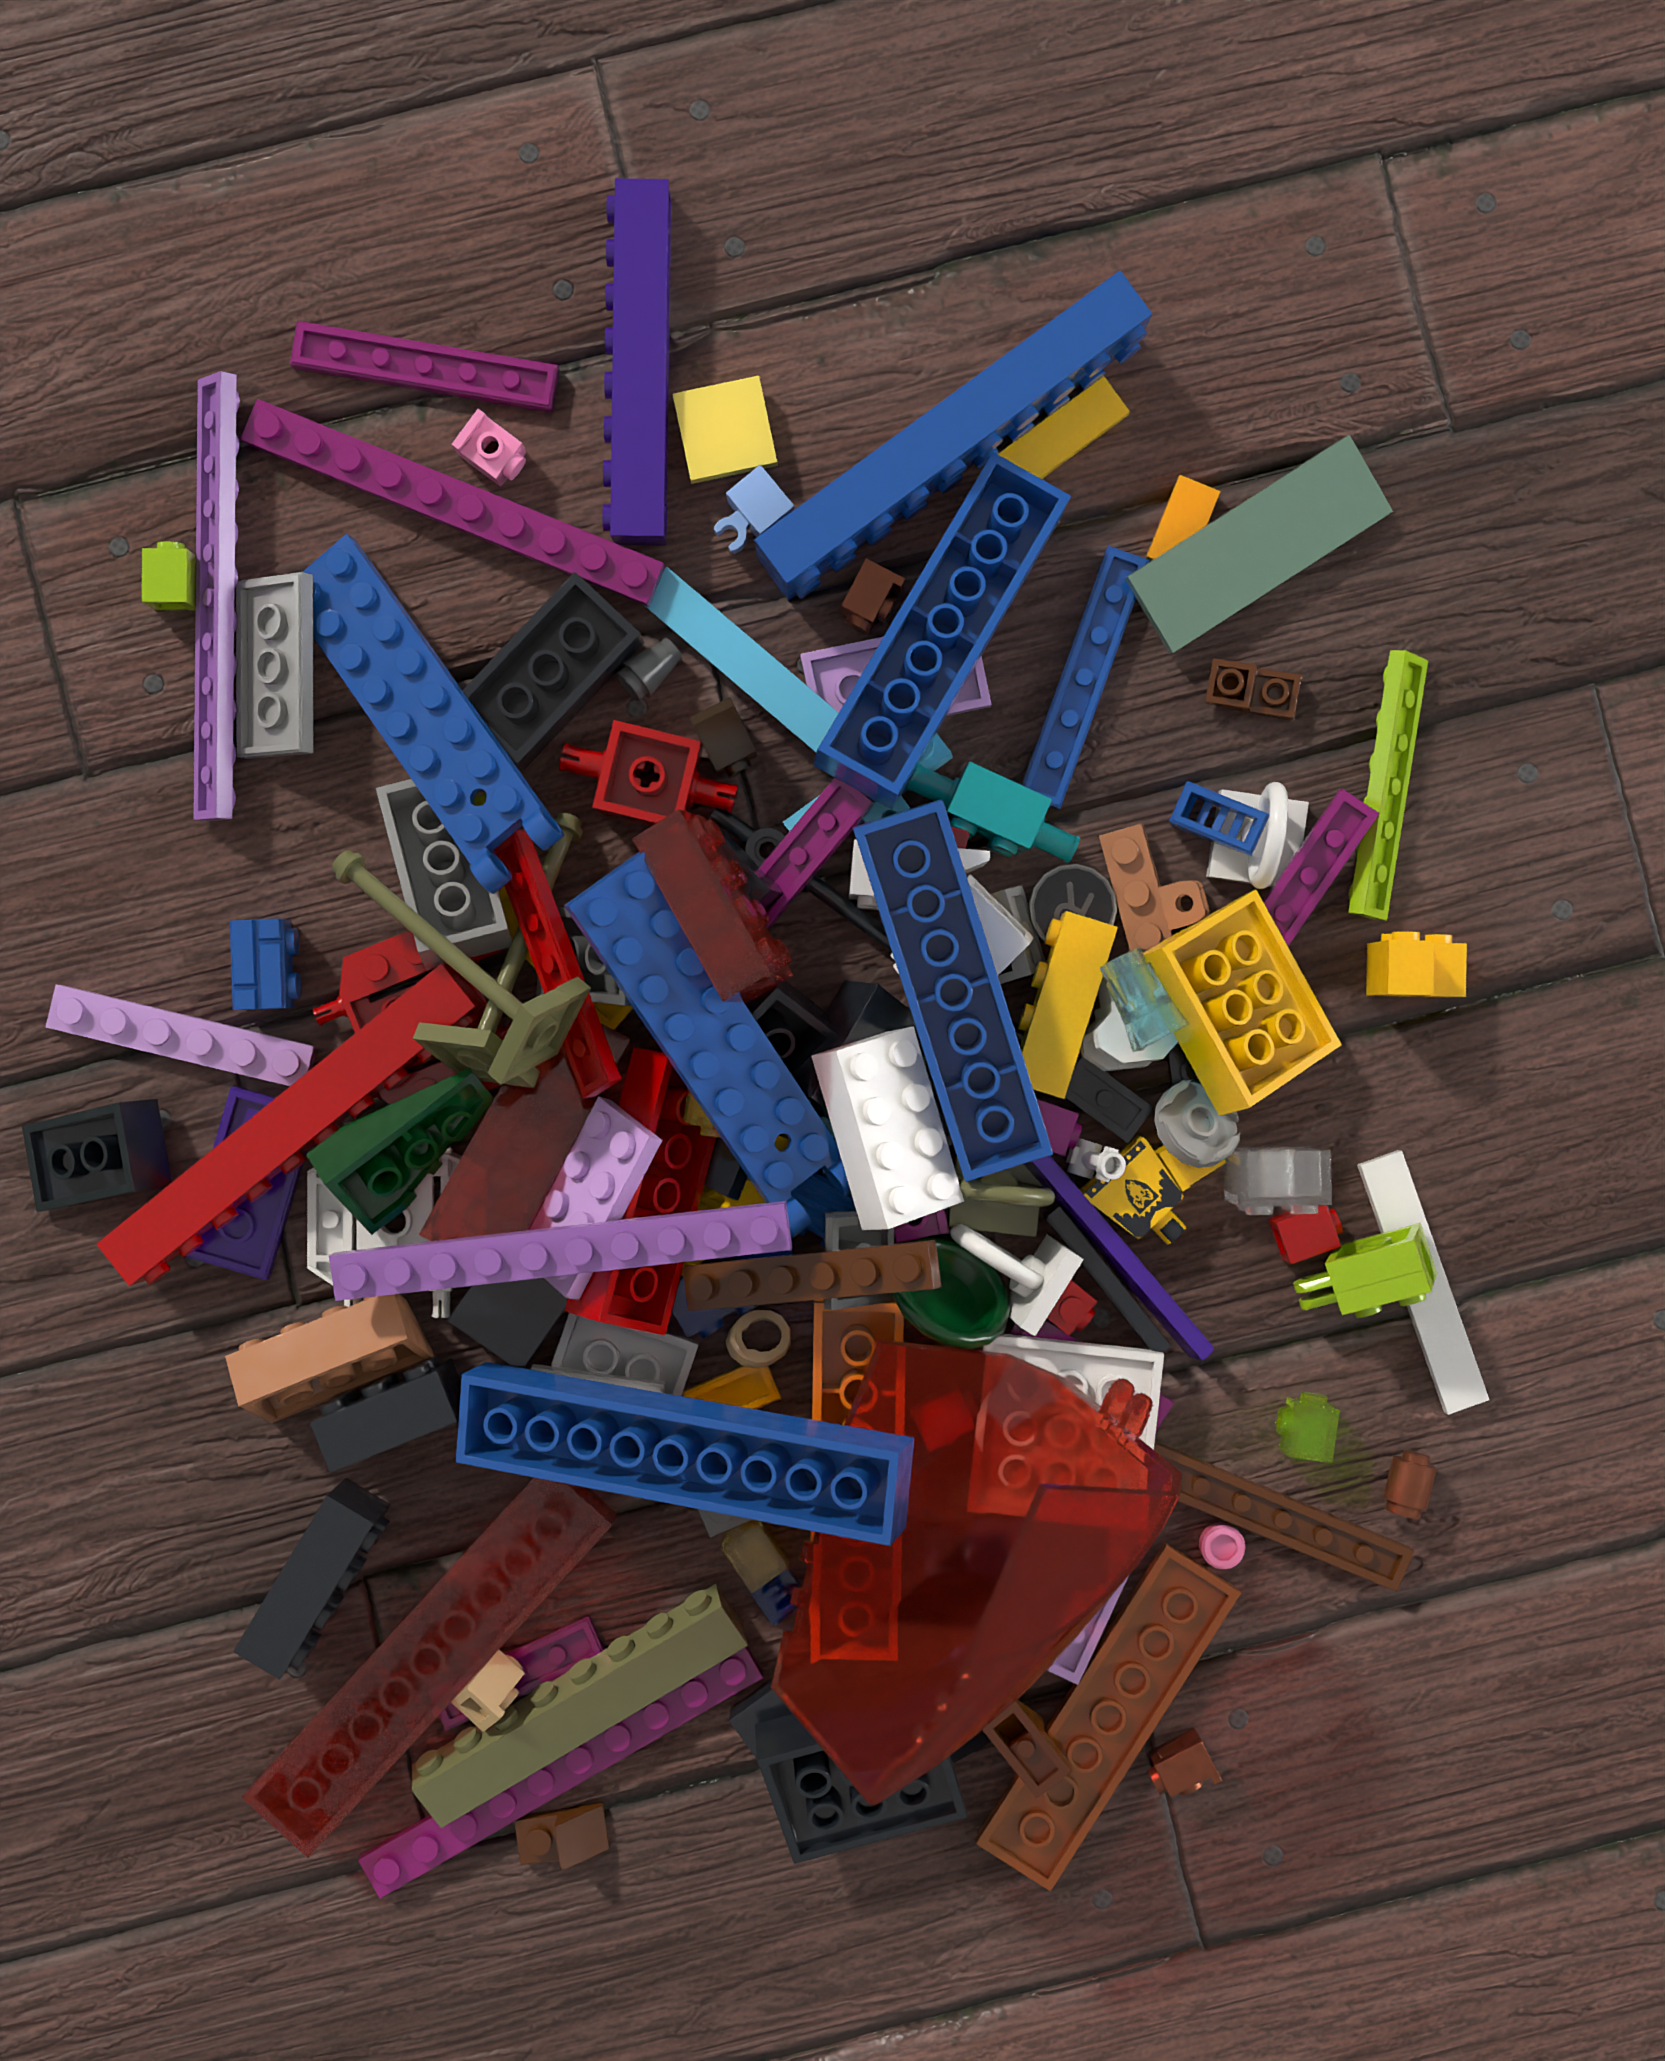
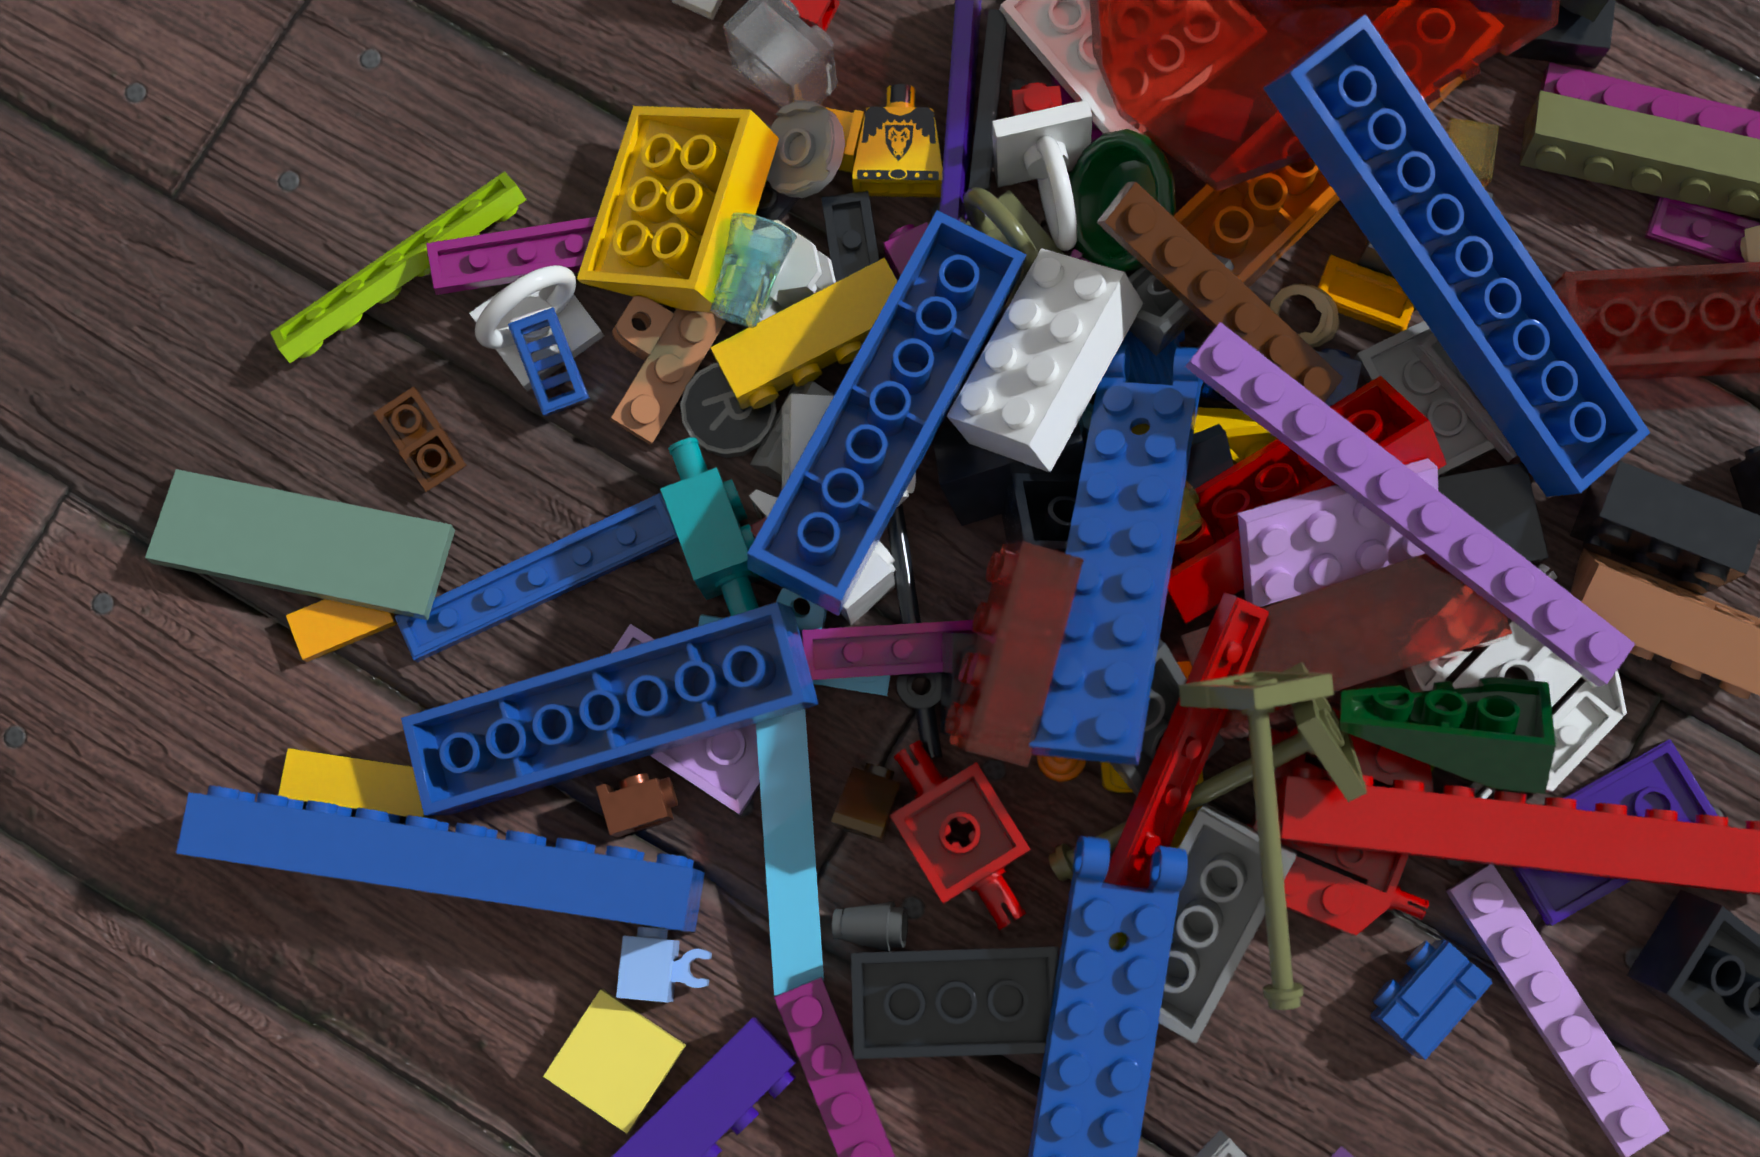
camera: 125 degrees left, 10 degrees down
(776, 1595) = (1477, 104): clear blue tile -> none
(1087, 1159) = (910, 207): white bar -> none
(1416, 968) = (521, 112): yellow brick -> none

